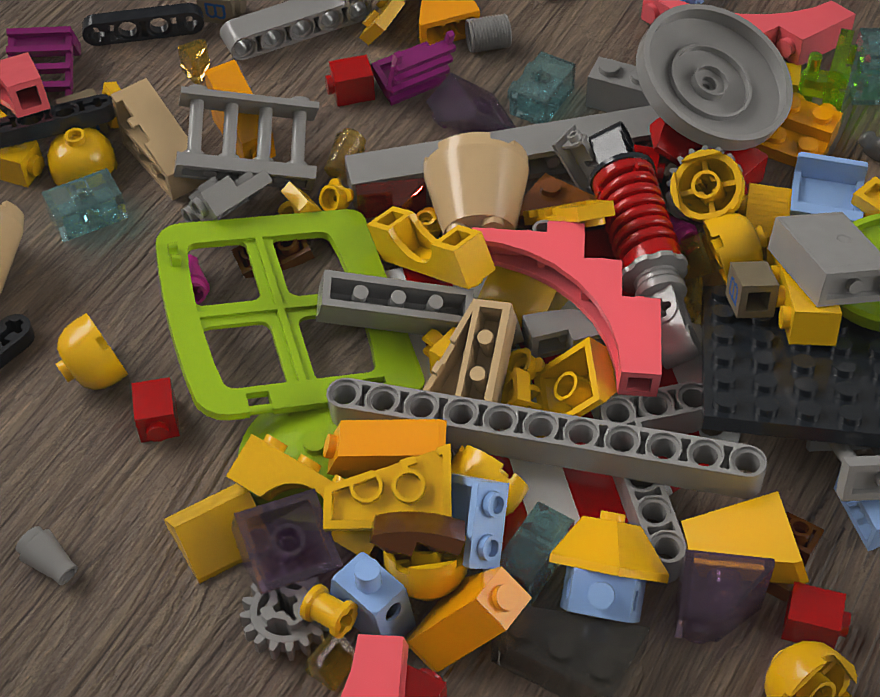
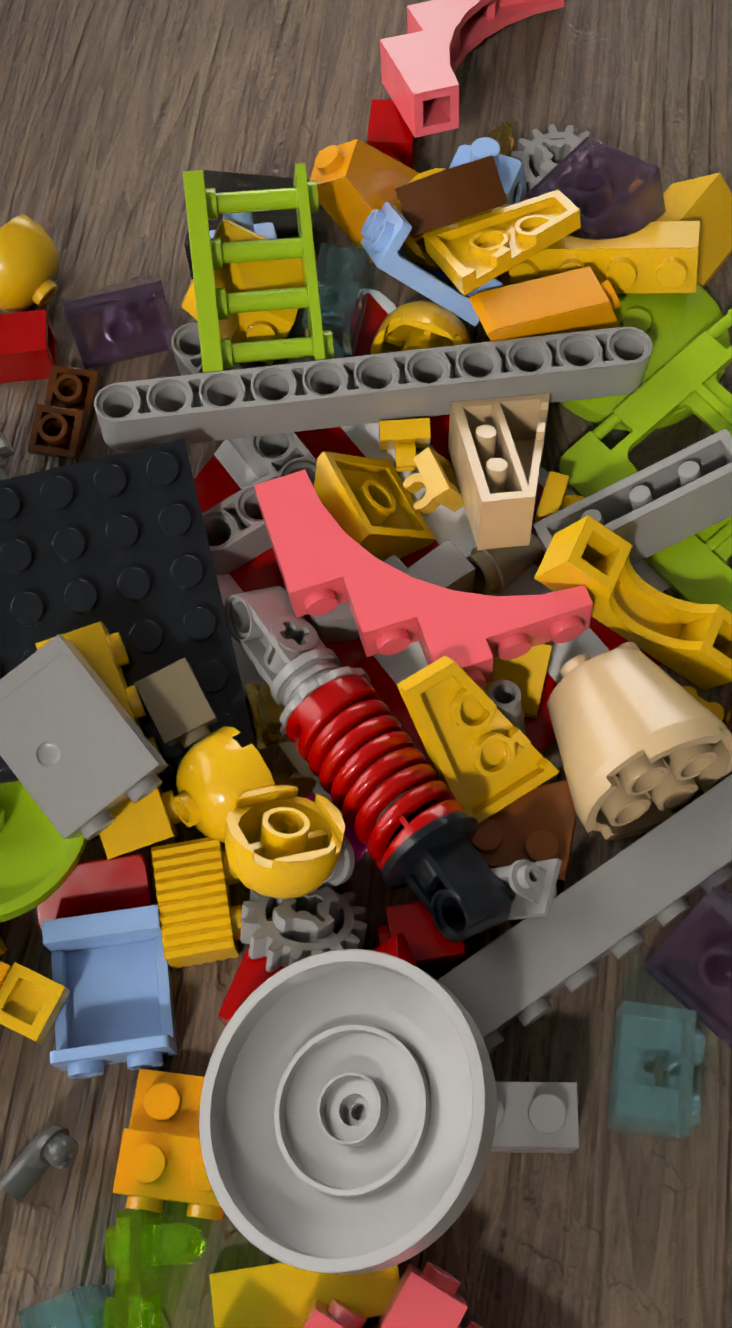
camera: 160 degrees right, 15 degrees up
(329, 611) = (516, 144): yellow bush -> none
(524, 360) = (446, 523): yellow plate -> none
(641, 542) = (211, 254): none -> lime fence
(750, 529) = (83, 361): yellow slope -> none

